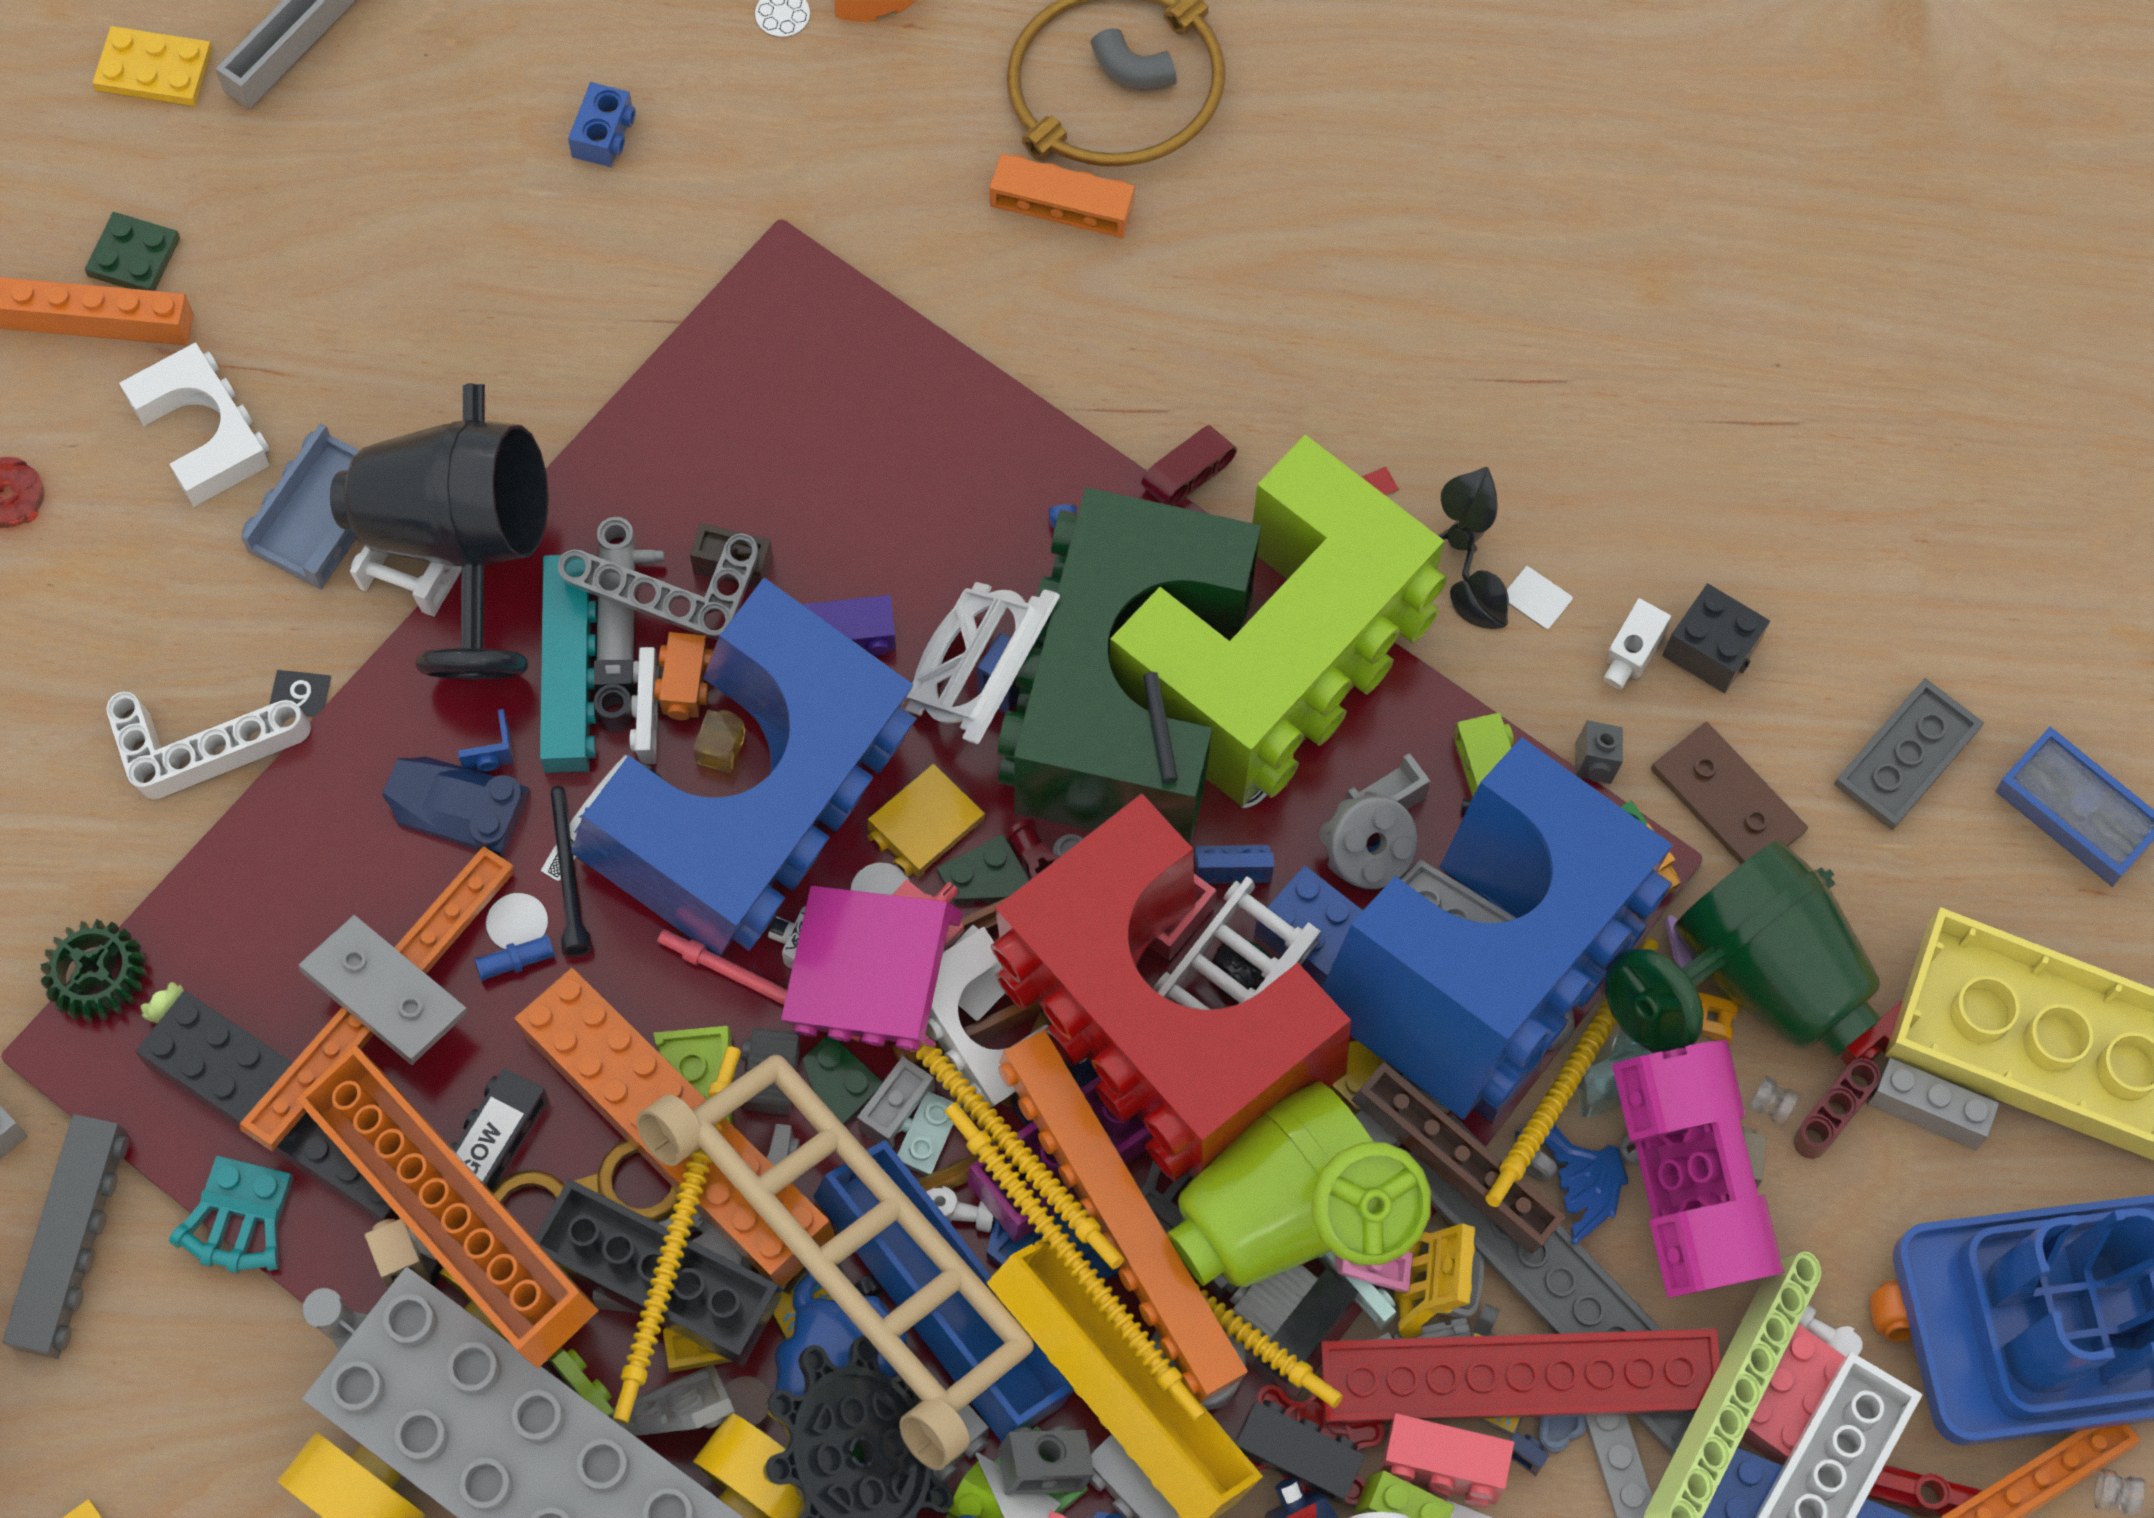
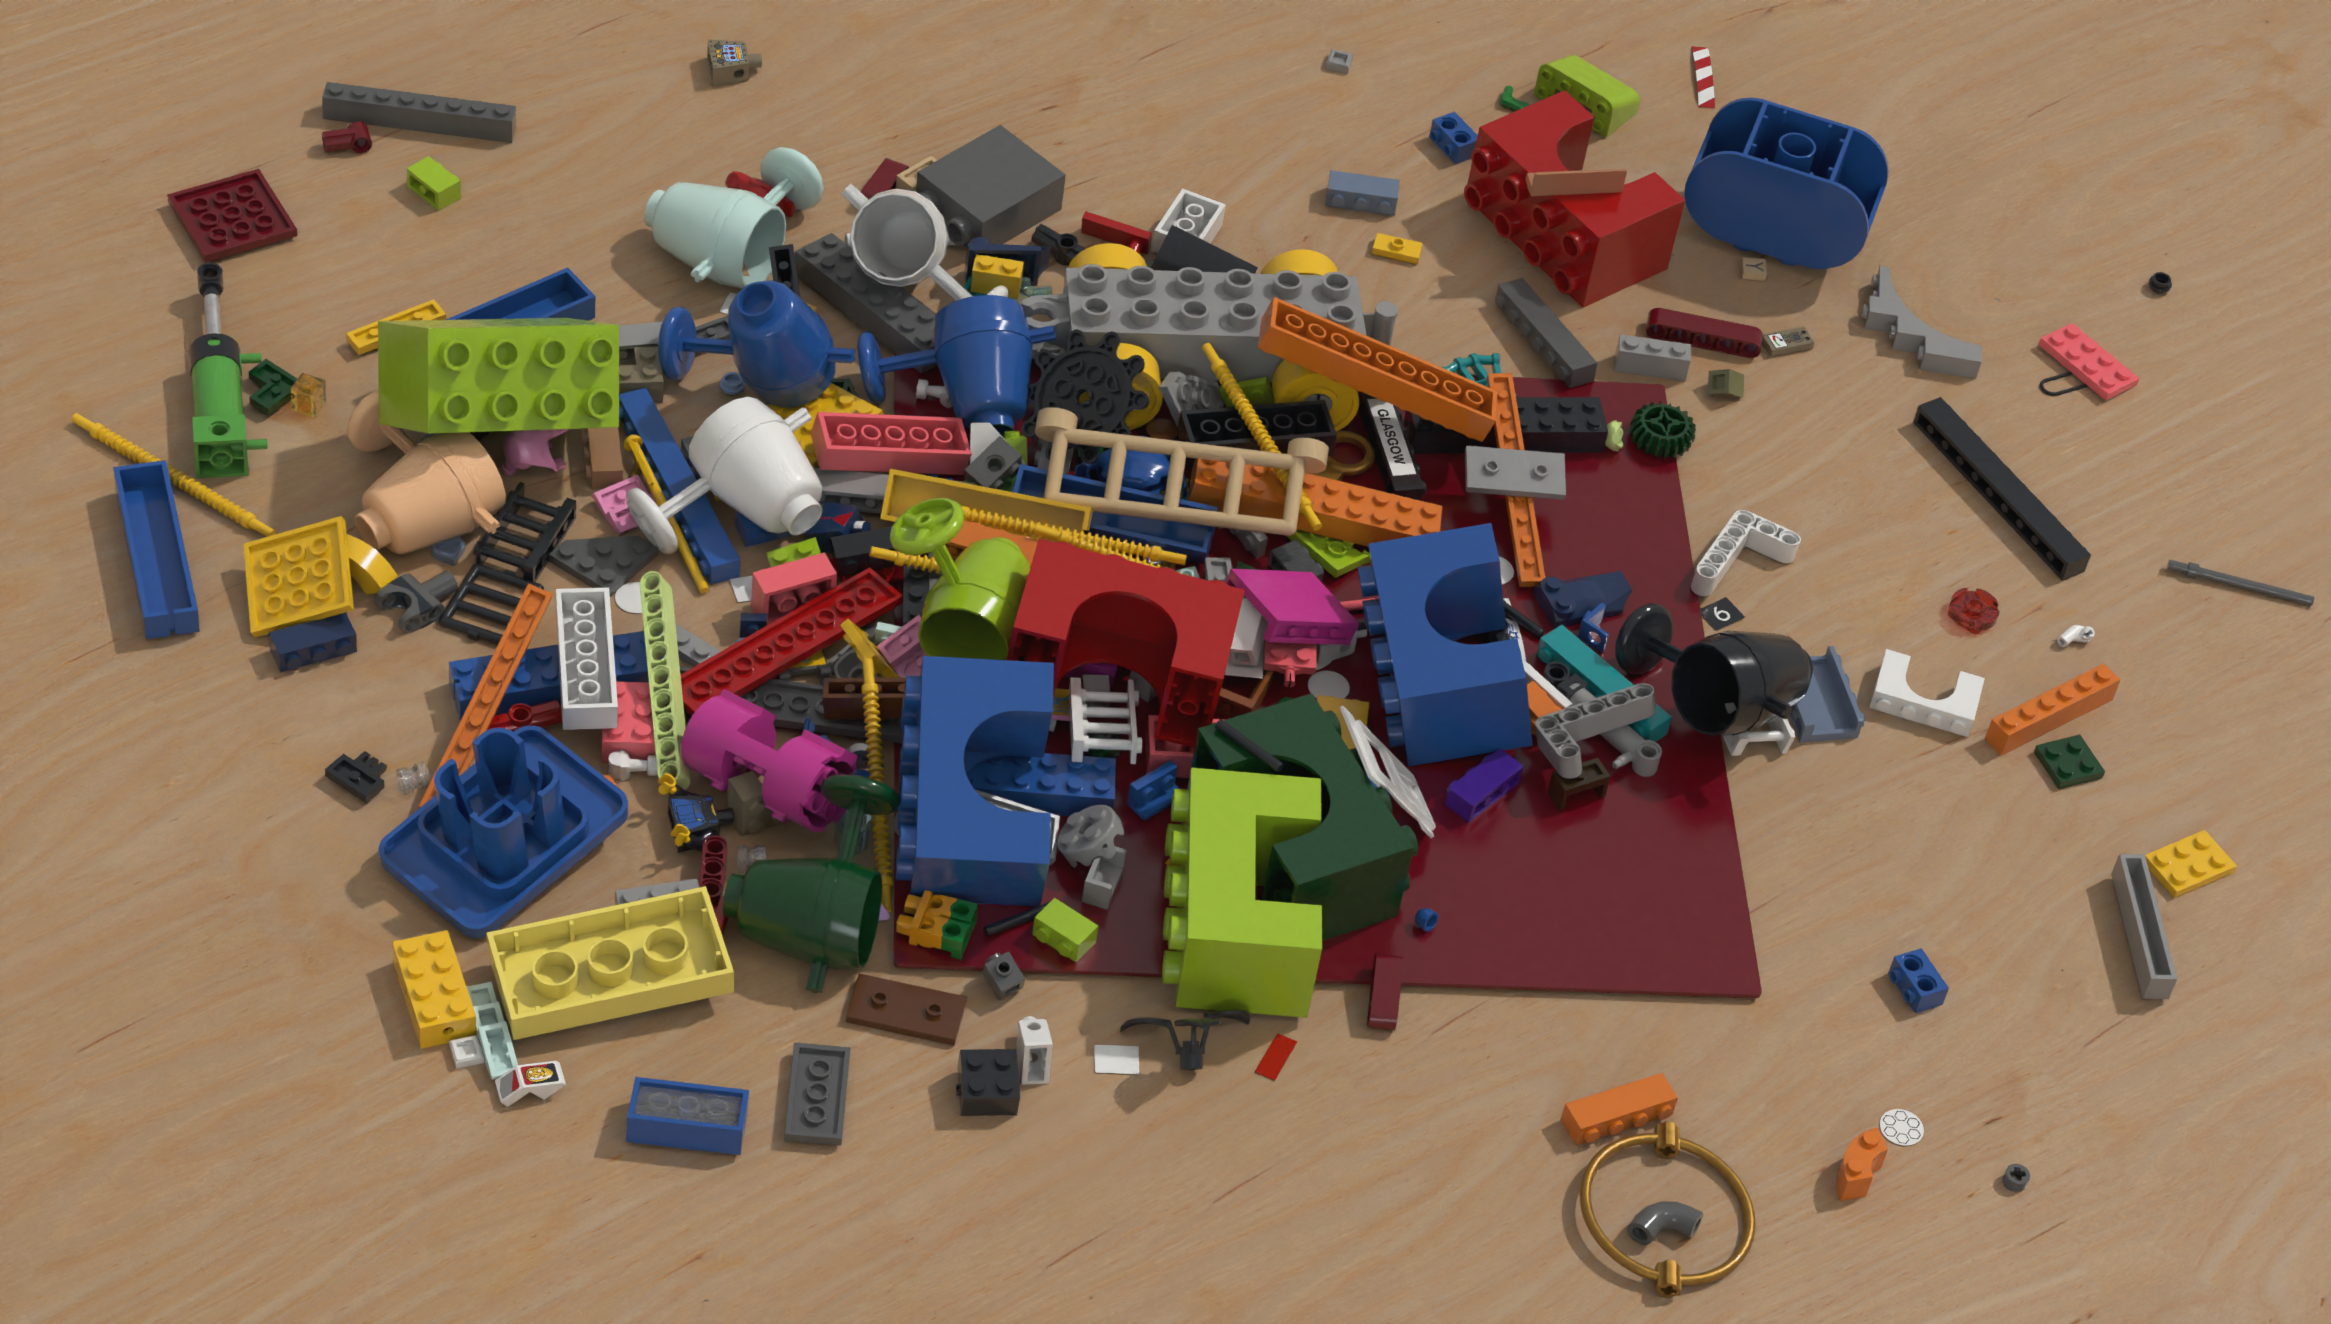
camera: 135 degrees right, 20 degrees down
(1810, 1197) = (692, 815): none -> torso

